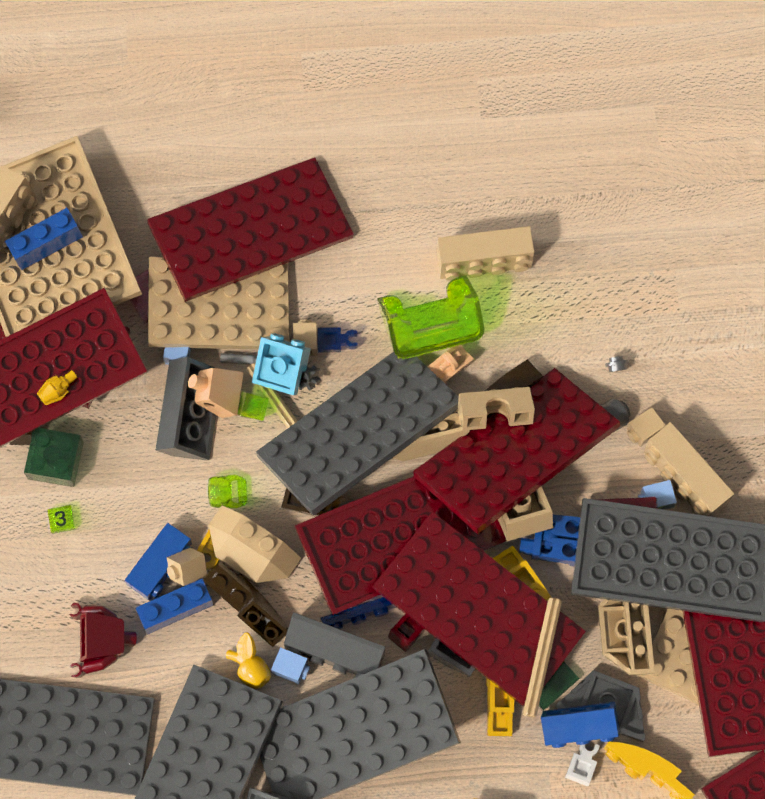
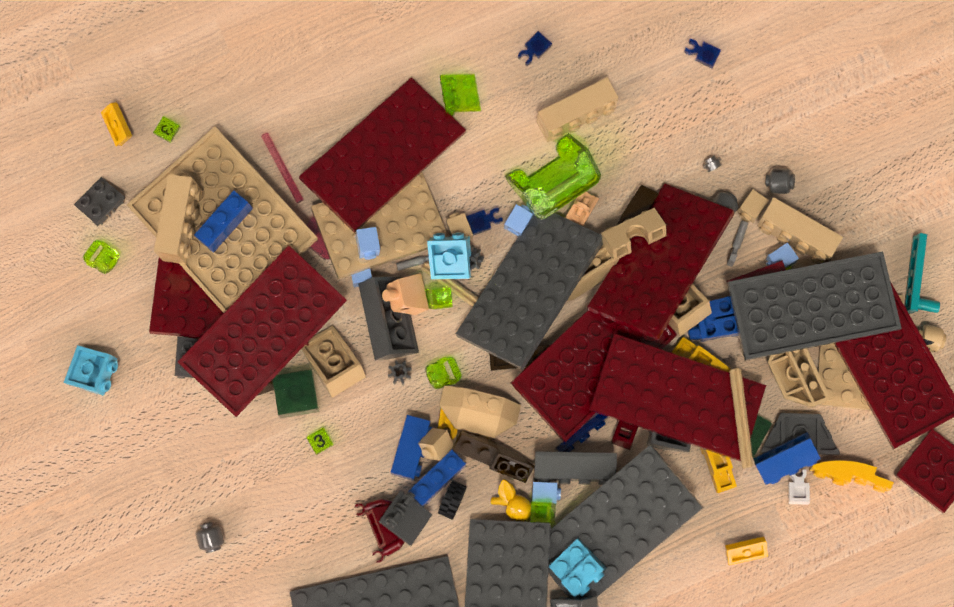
camera: 20 degrees left, 5 degrees up
(26, 124) = (166, 129): none -> clear neon green tile
(55, 388) = (280, 339): yellow piece -> none
(109, 436) = (333, 361): none -> tan slope
(121, 636) = (405, 517): none -> dark grey hinge
(136, 208) = (282, 168): none -> clear pink bar
(179, 467) = (401, 378): none -> dark grey gear
(181, 635) = (452, 500): none -> black tyre
(194, 316) = (367, 243): none -> light blue brick
(279, 686) = (543, 512): none -> clear neon green brick
(293, 763) = (578, 568): none -> medium azure plate
(362, 192) = (460, 93): none -> clear neon green hinge
(374, 351) = (518, 220): none -> light blue brick
(466, 169) = (536, 46): none -> clear blue plate
(613, 462) = (737, 242): none -> light grey piece
(654, 241) = (705, 55): none -> clear blue plate
(688, 409) = (780, 181): none -> dark grey head

